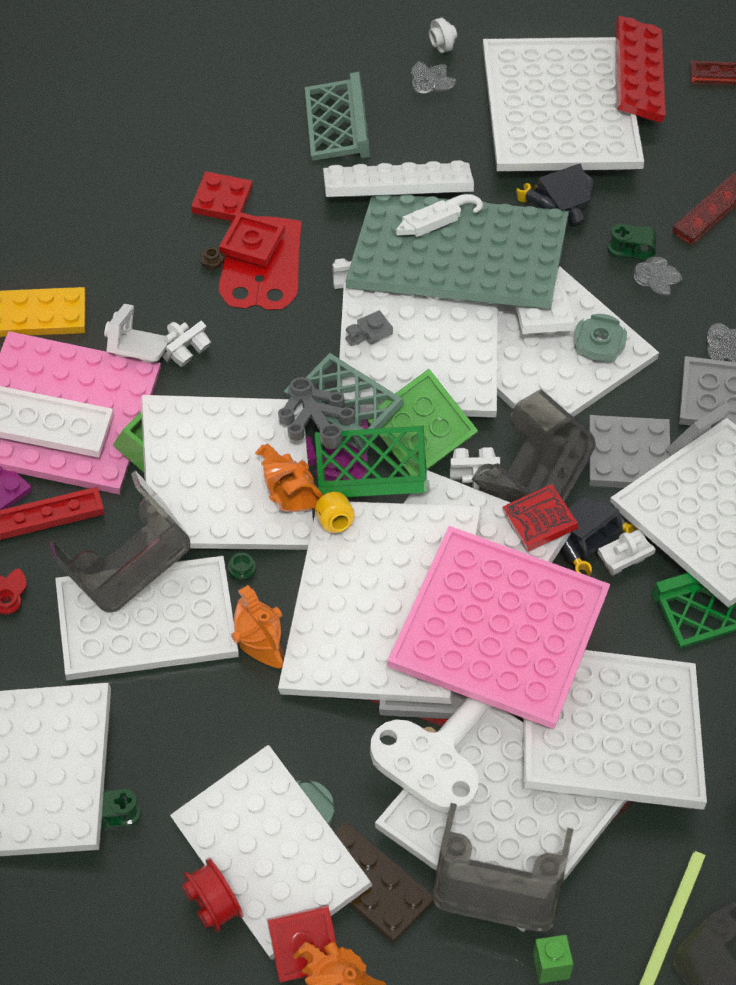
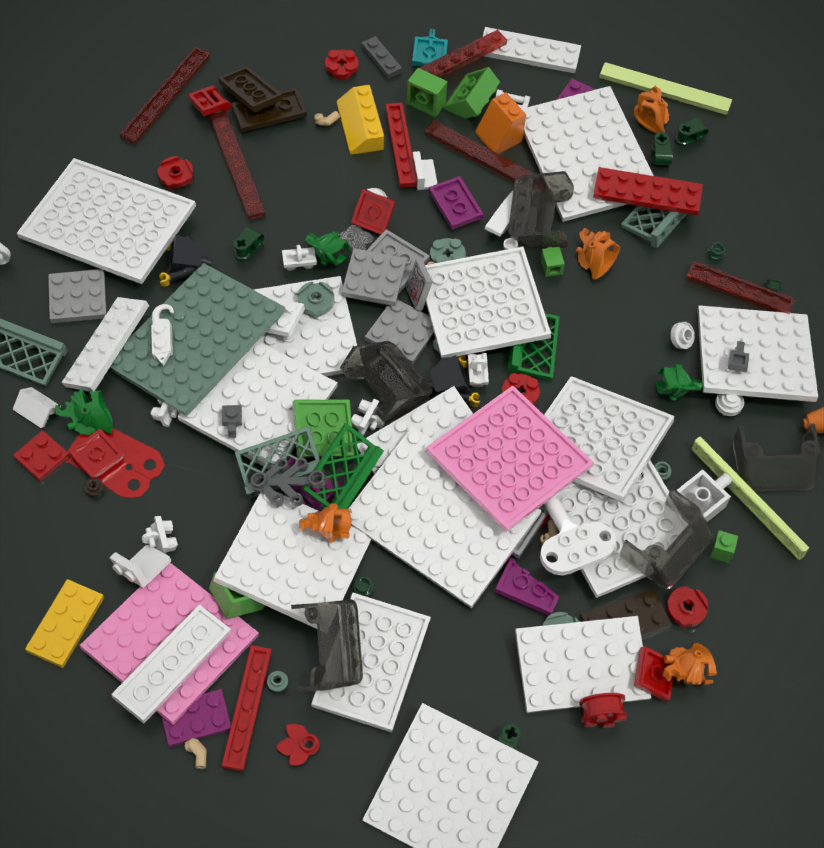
camera: 65 degrees left, 5 degrees up
(71, 541) = (277, 687): none -> sand green plate
(258, 629) = (424, 596): orange helmet -> none
(279, 160) = (34, 406): none -> white panel
(296, 204) = (87, 415): none -> green helmet
(334, 512) = (367, 509): yellow head -> none
(342, 742) = (523, 588): none -> magenta wing
(431, 78) = (25, 279): clear plate -> none
(433, 967) = (684, 617): none -> red plate
(445, 129) = (77, 296): none -> light grey plate
(540, 517) = (441, 397): red tile -> none
(610, 899) = (707, 493): none -> white brick
(629, 829) = (663, 466): none -> sand green plate
(637, 604) = (526, 383): none -> red plate
(640, 69) = (111, 162): red plate -> none
(650, 298) = (299, 257): none -> white hips
(657, 275) = (277, 244): clear plate -> none
(678, 382) = (374, 277): none -> light grey plate
(679, 144) = (179, 180): none -> red plate
(684, 317) = (328, 245): none -> green helmet

